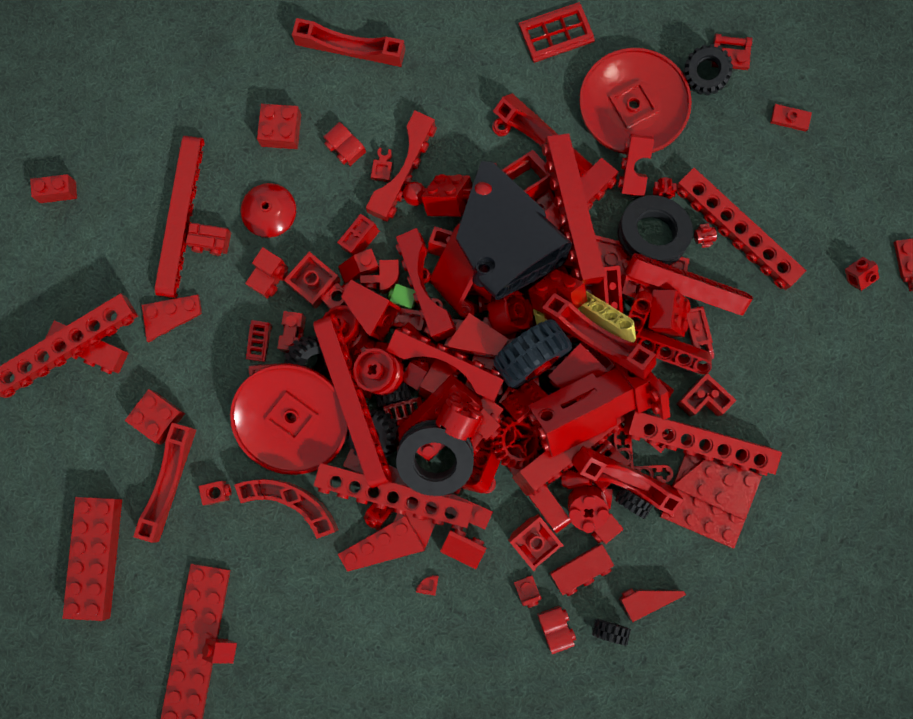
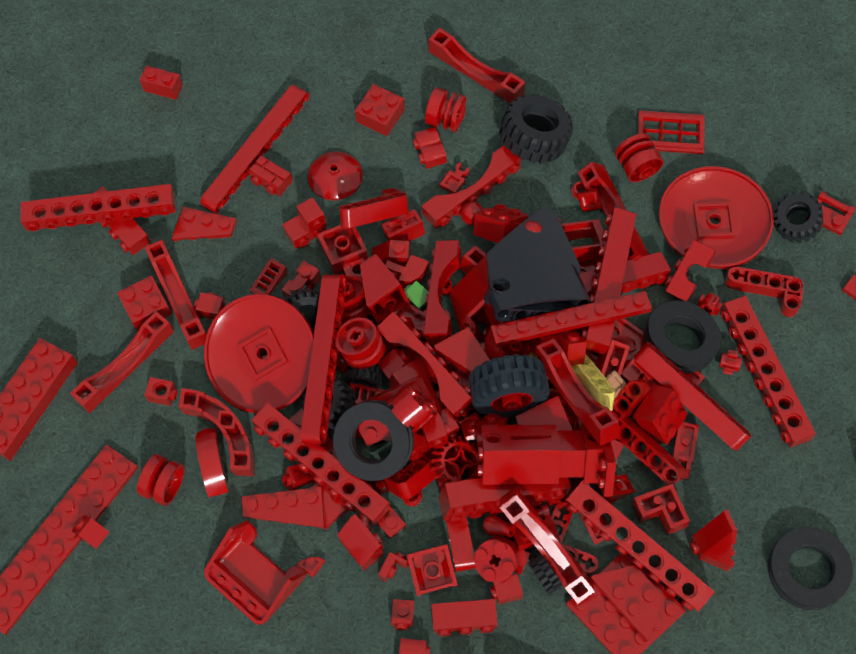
camera: 25 degrees right, 15 degrees down
(181, 394) = (176, 294): none -> red arch
(217, 391) = (209, 305): none -> red brick
(258, 576) = (160, 479): none -> red wheel
(293, 537) = (210, 462): none -> red arch
(321, 237) = (389, 205): none -> red beam
(342, 100) = (443, 109): none -> red wheel
(381, 621) = (249, 575): none -> red windscreen
(436, 66) = (531, 143): none -> black tyre
(498, 558) = (389, 567): none -> red bracket
(514, 134) = (589, 200): none -> red tile
(542, 73) = (638, 157): none -> red wheel
(560, 267) = (570, 319): none -> red plate
(621, 304) = (616, 381): none -> nougat tile
(704, 150) = (763, 287): none -> red beam
(766, 408) = (716, 541): none -> red wedge
(872, 380) = (836, 556): none -> black tyre

